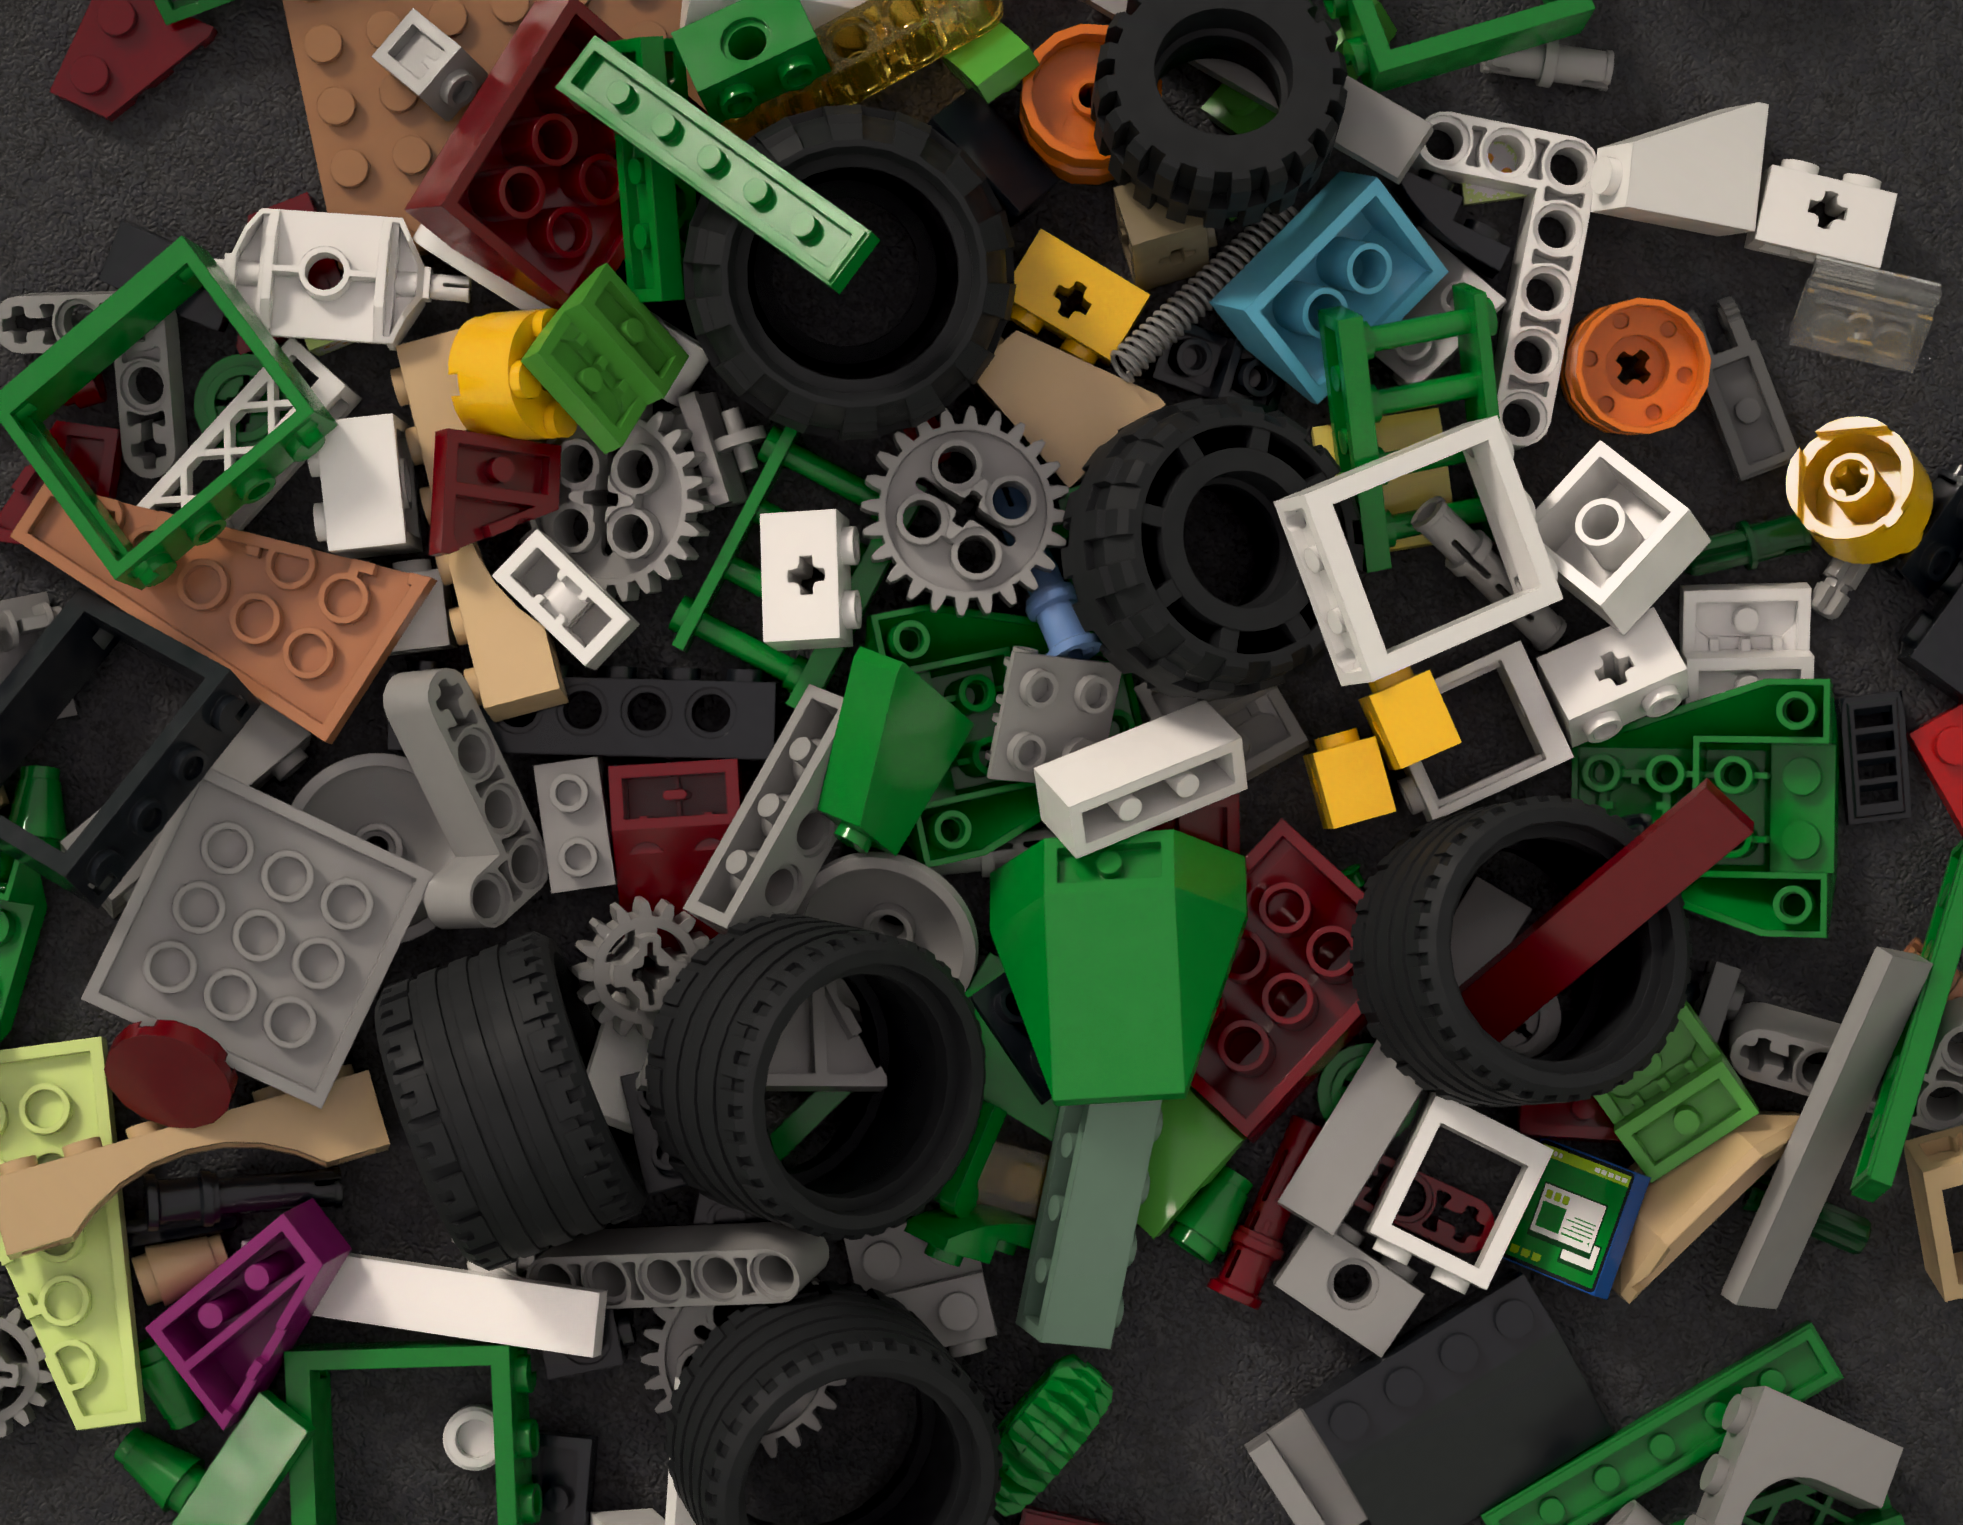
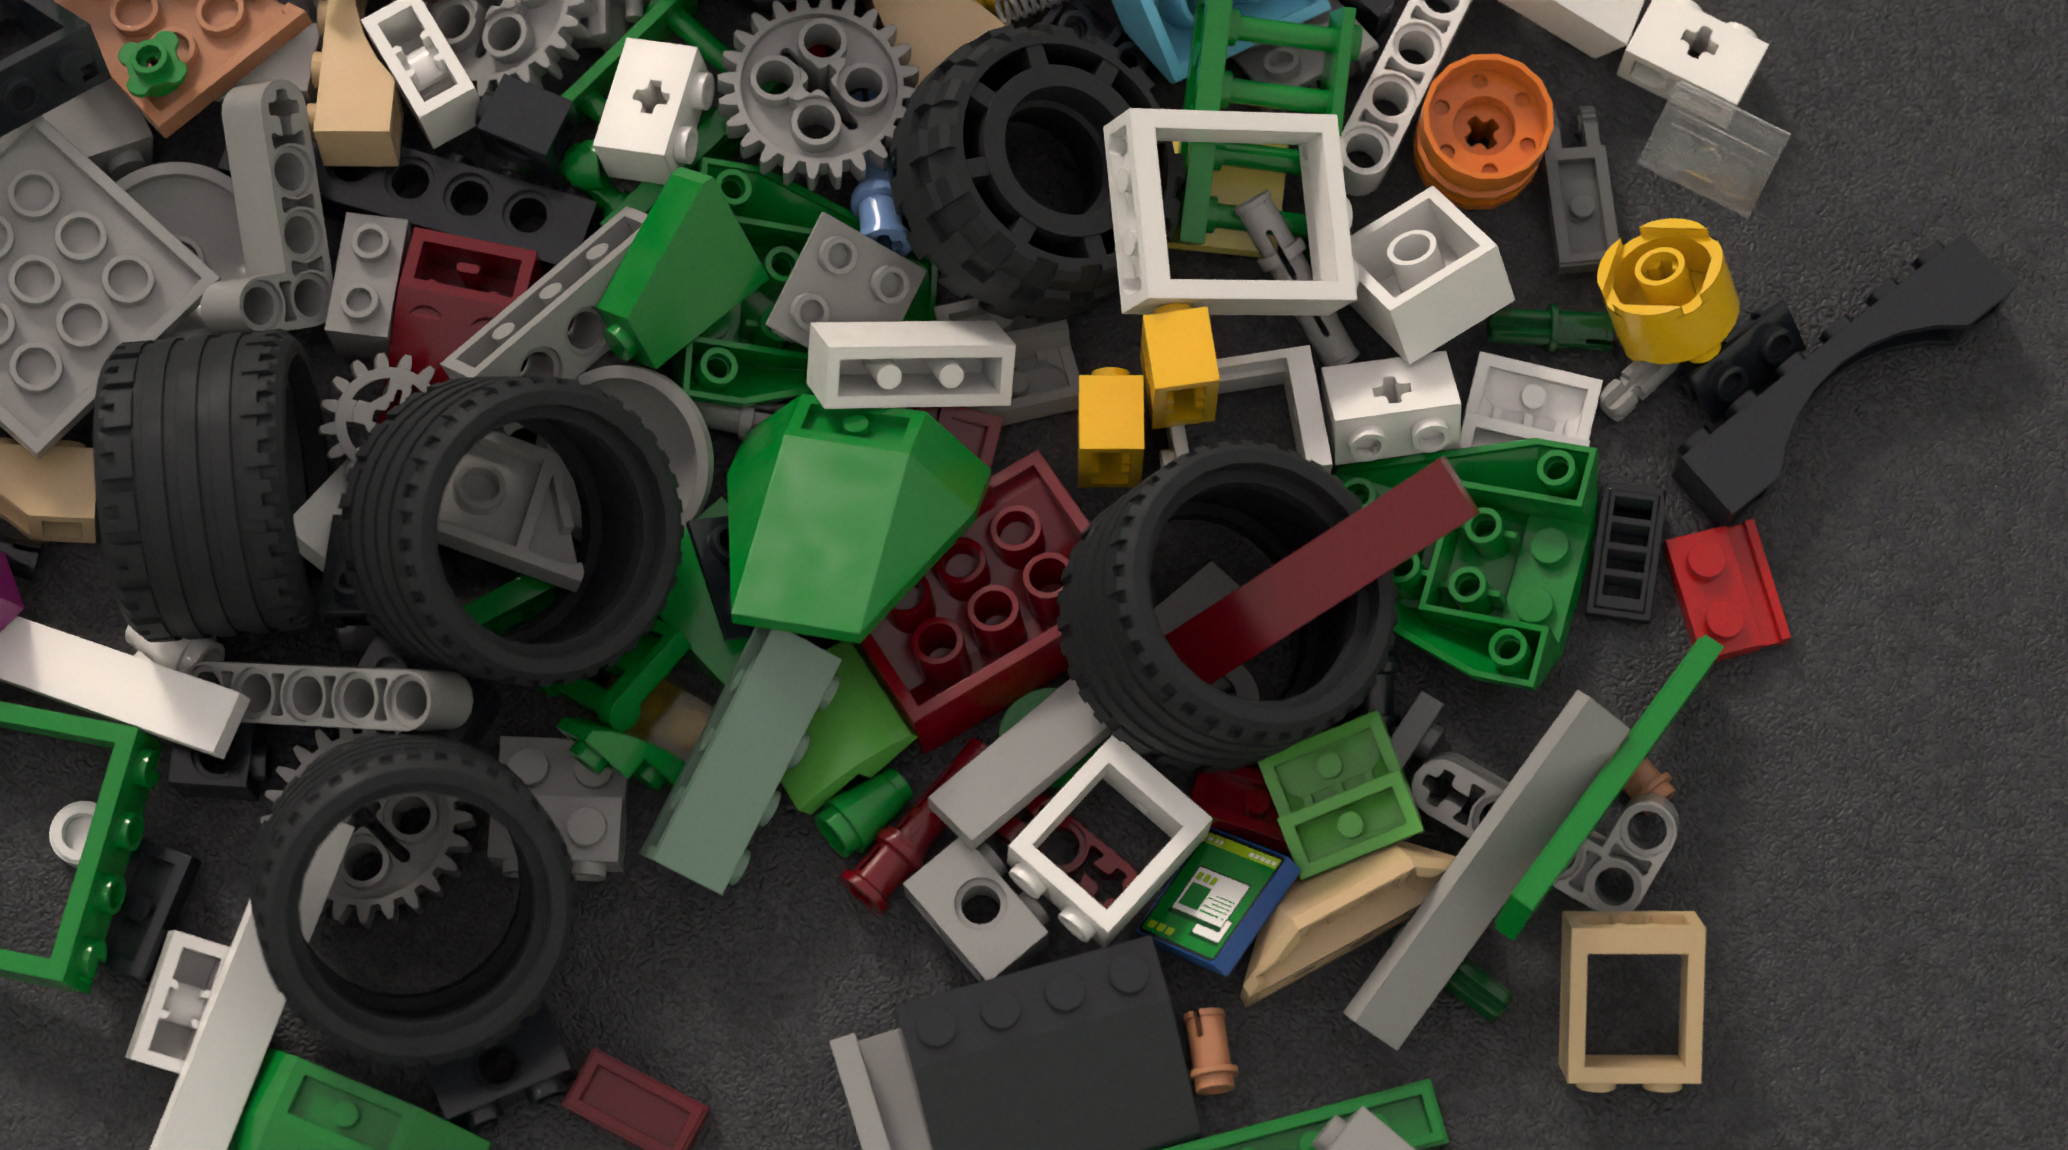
camera: 20 degrees right, 15 degrees down
(319, 682) = (160, 78): none -> green plate
(685, 631) = (527, 125): none -> black brick
(750, 651) = (584, 167): none -> green hinge
(1048, 1429) = (629, 964): green gear -> none
(1600, 1354) = (1209, 1052): none -> nougat pin

